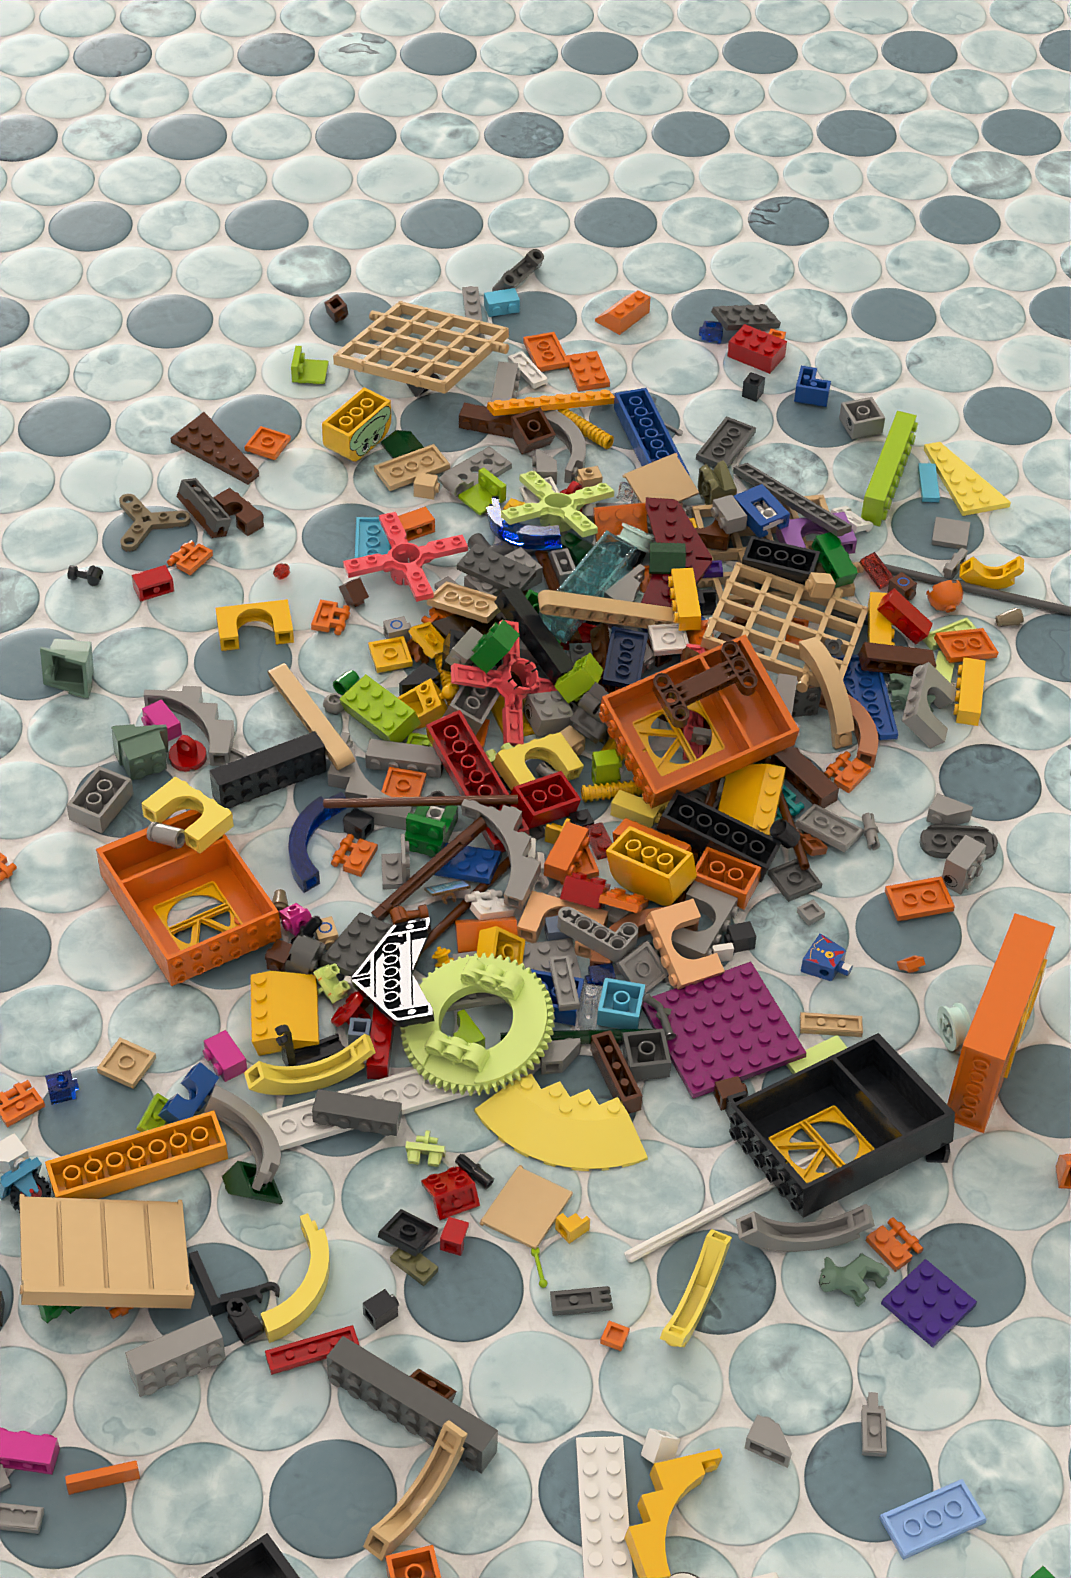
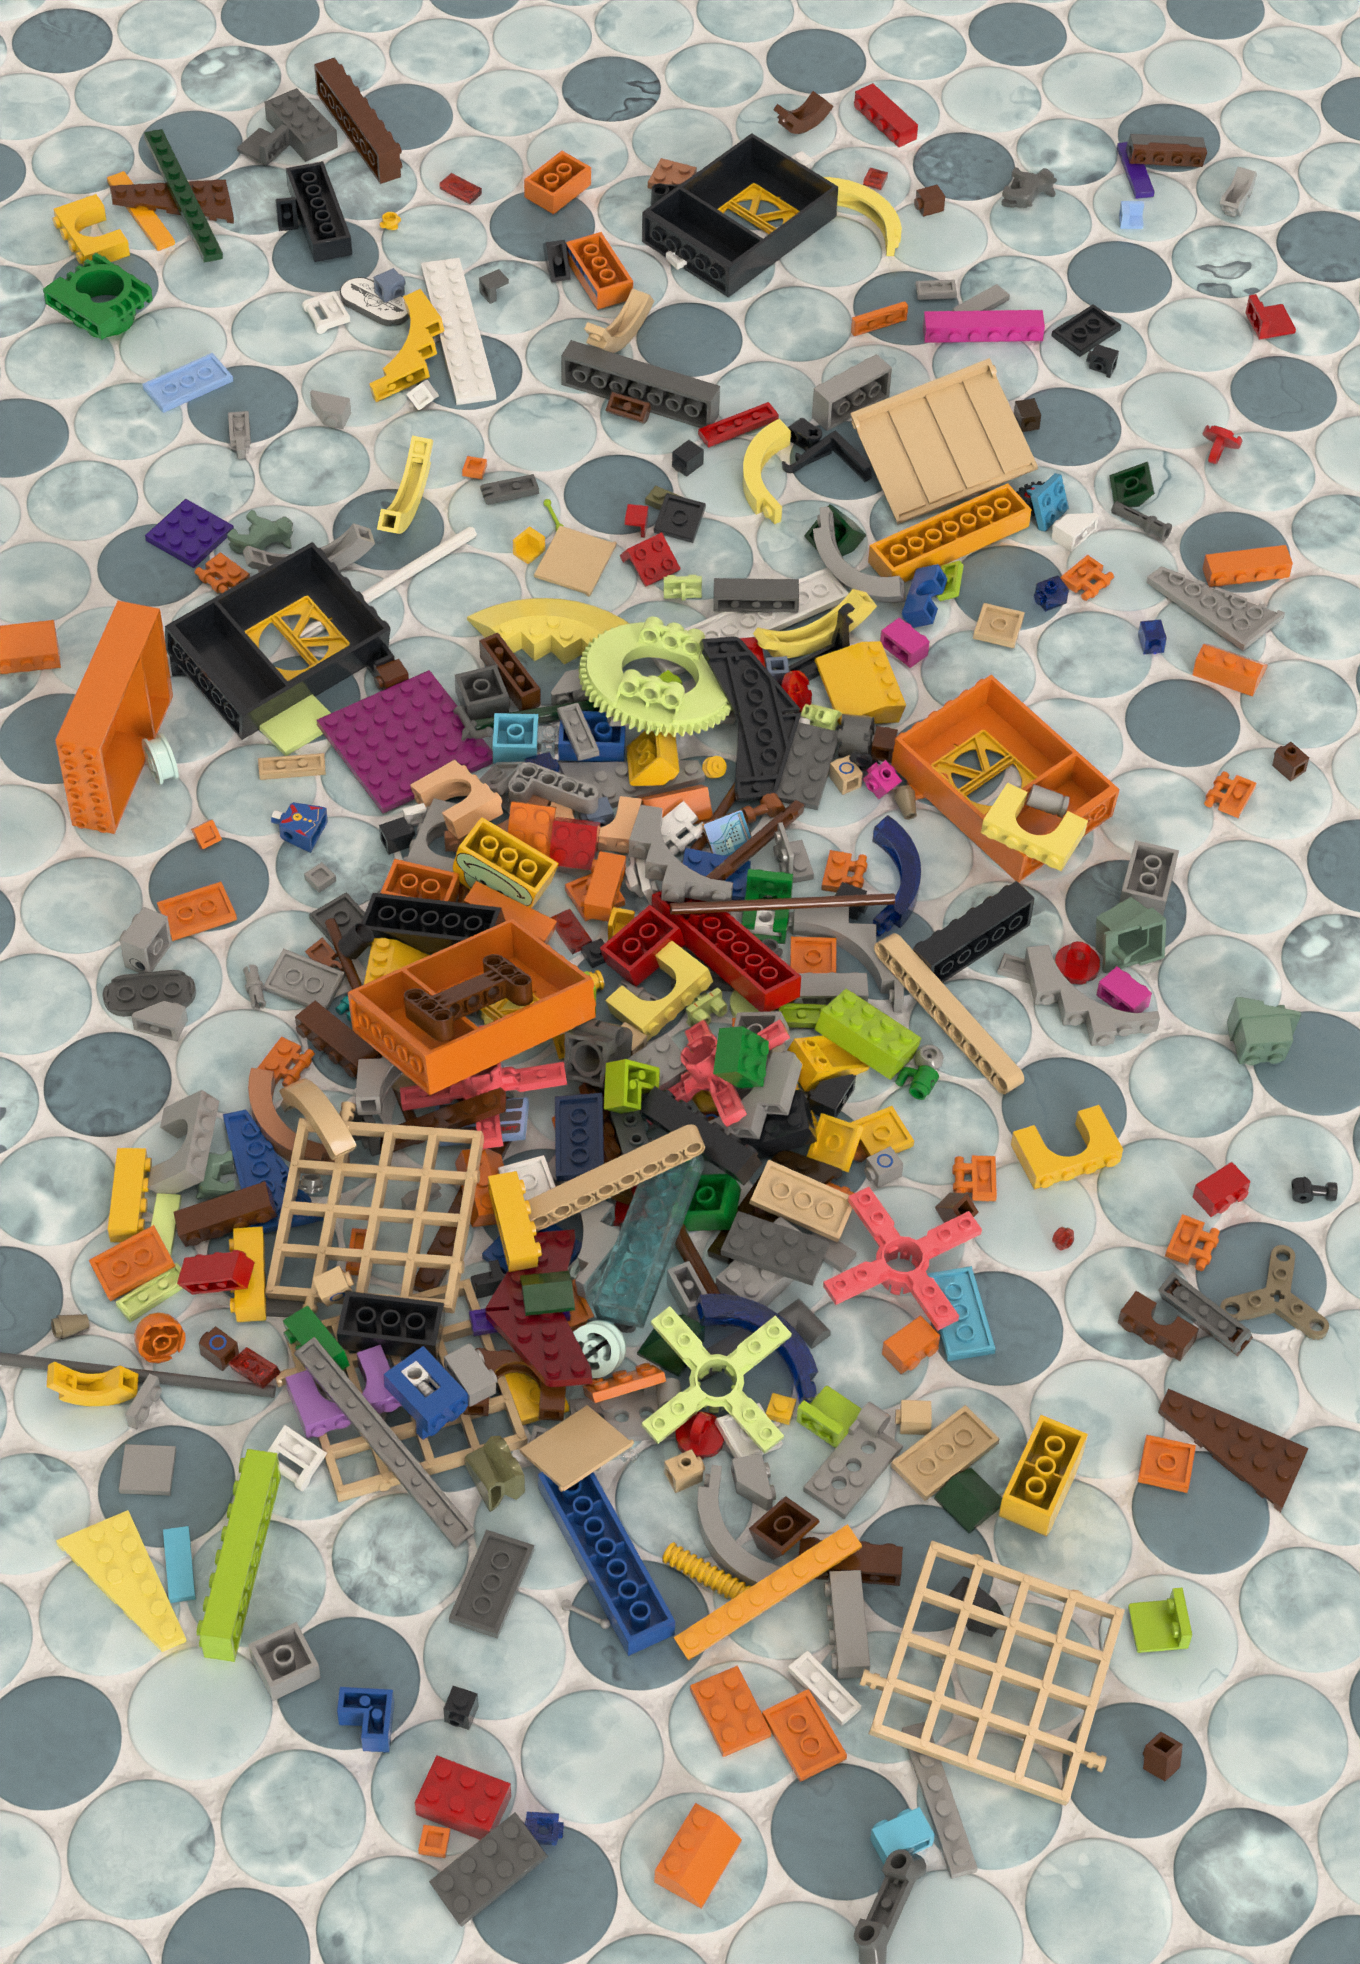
camera: 170 degrees right, 5 degrees up
(474, 1171) = (631, 578): black axle -> none

